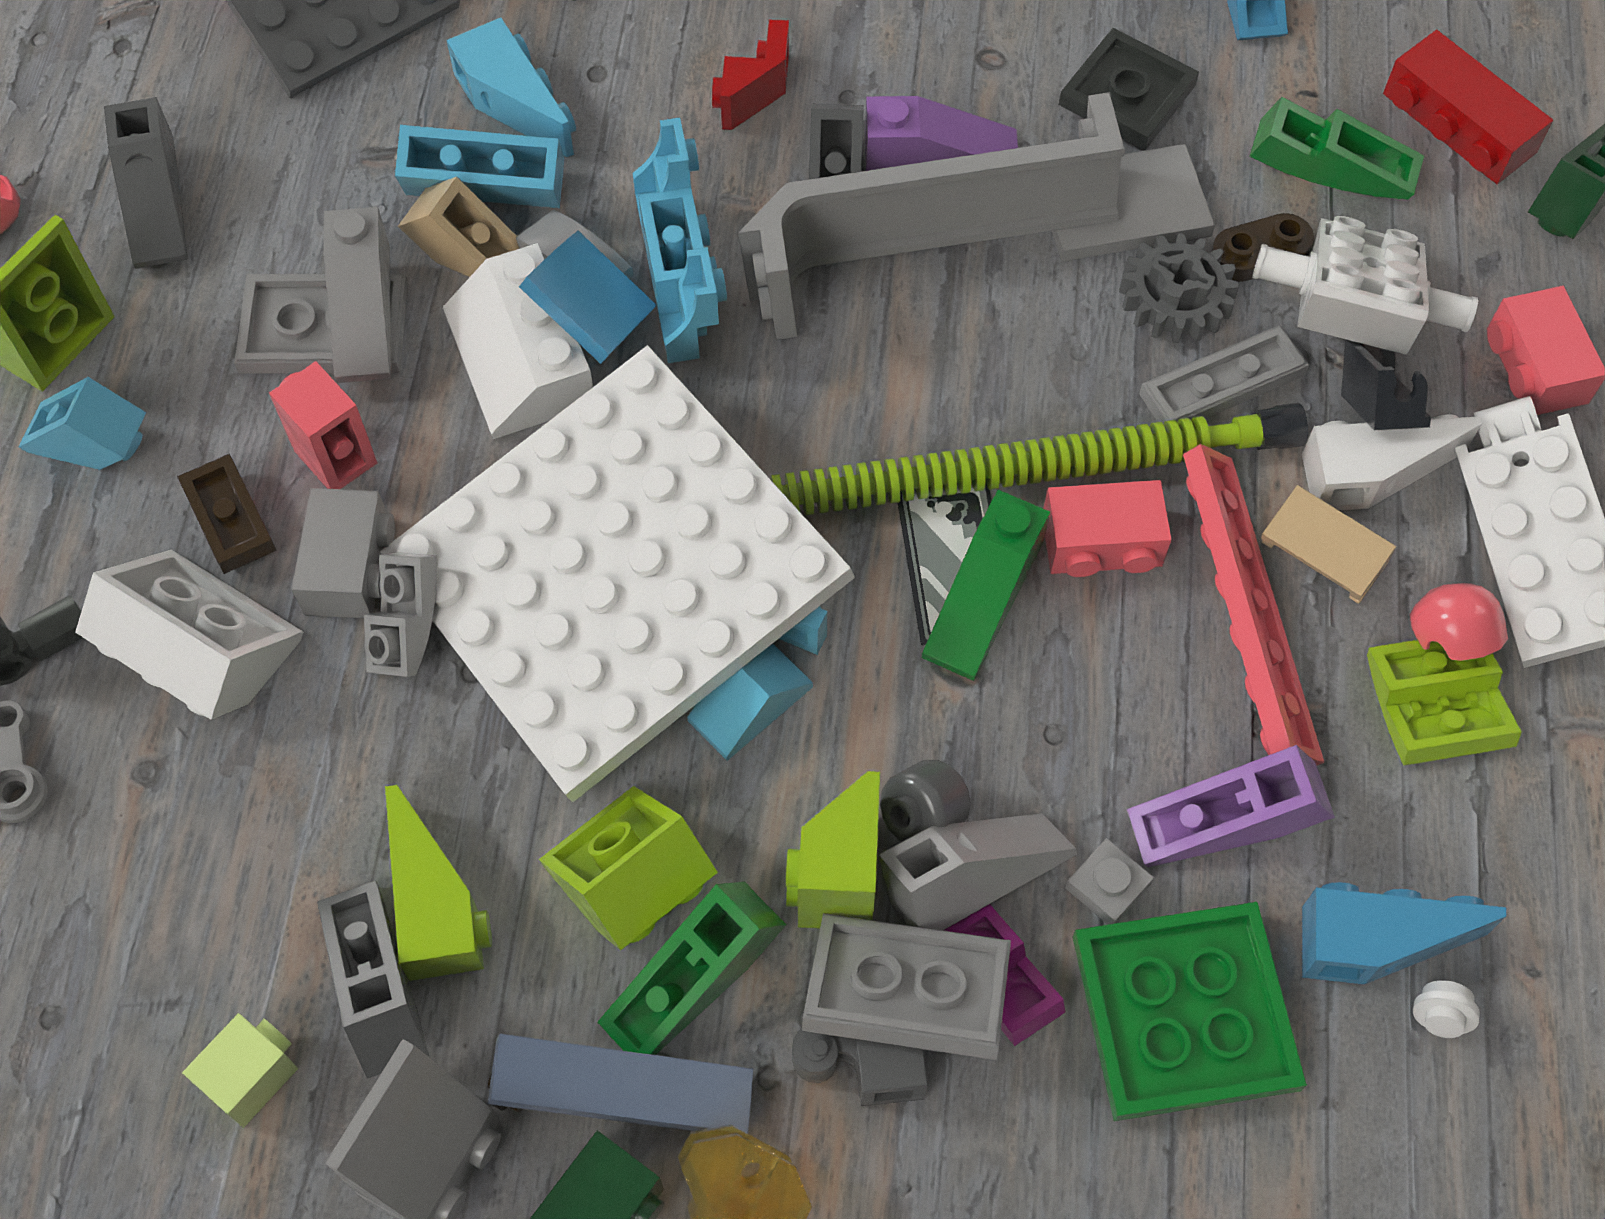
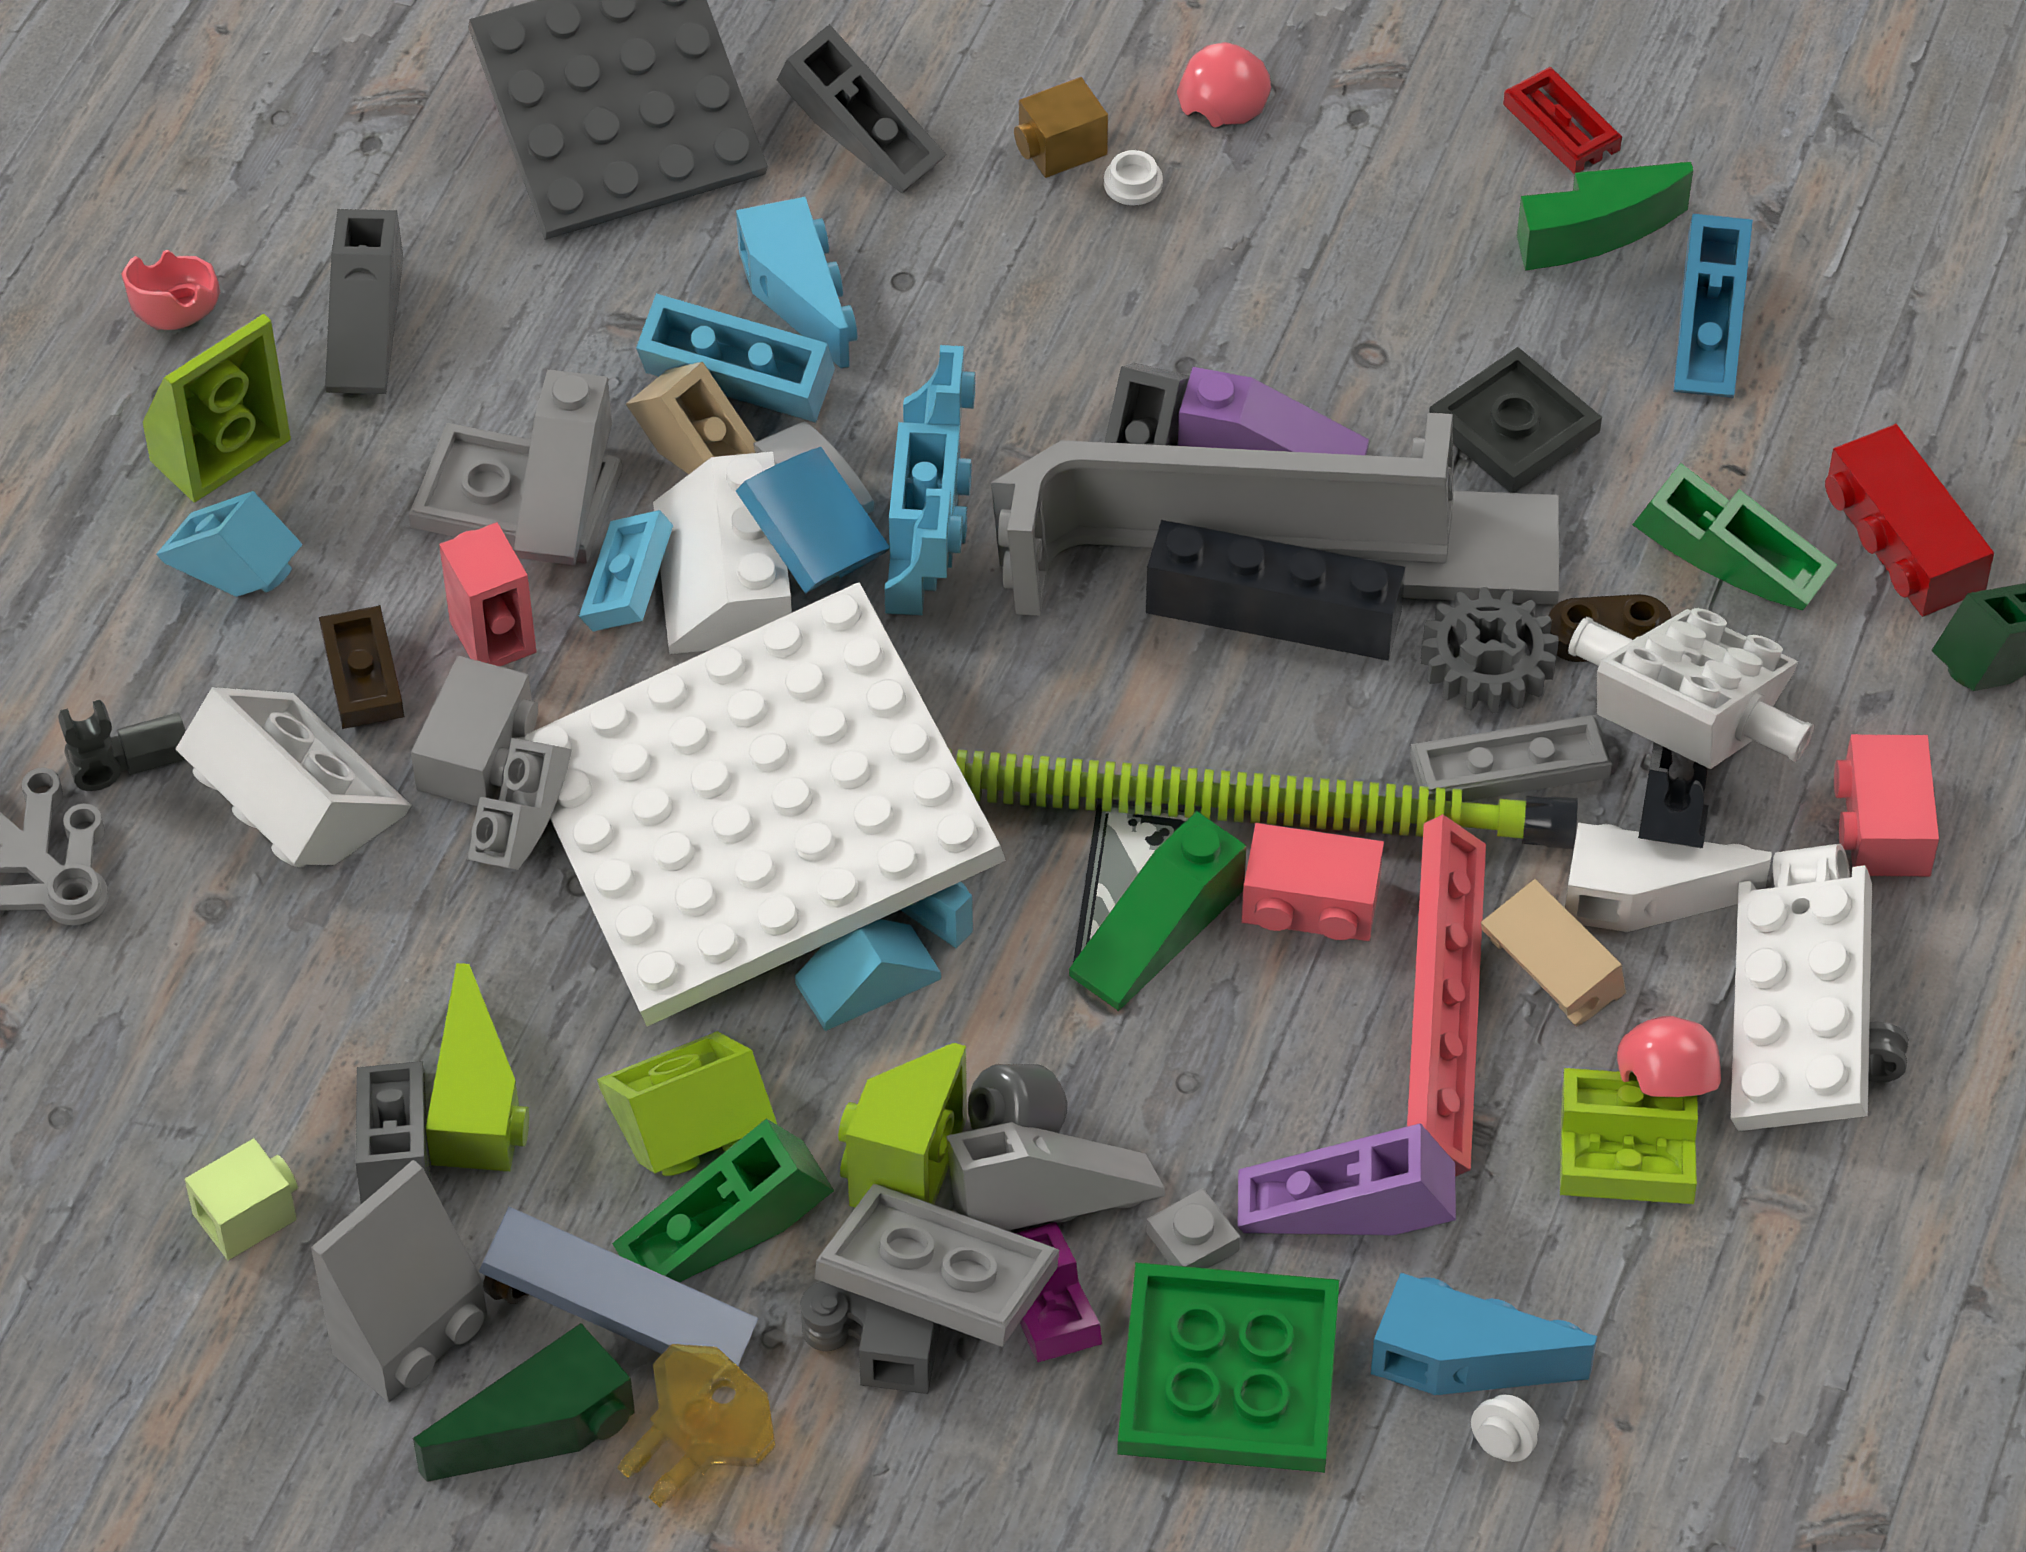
camera: 15 degrees right, 10 degrees down
(437, 374) = (626, 570): none -> medium azure plate
(753, 82) = (1077, 328): red slope -> none
(990, 273) = (1274, 590): none -> black brick

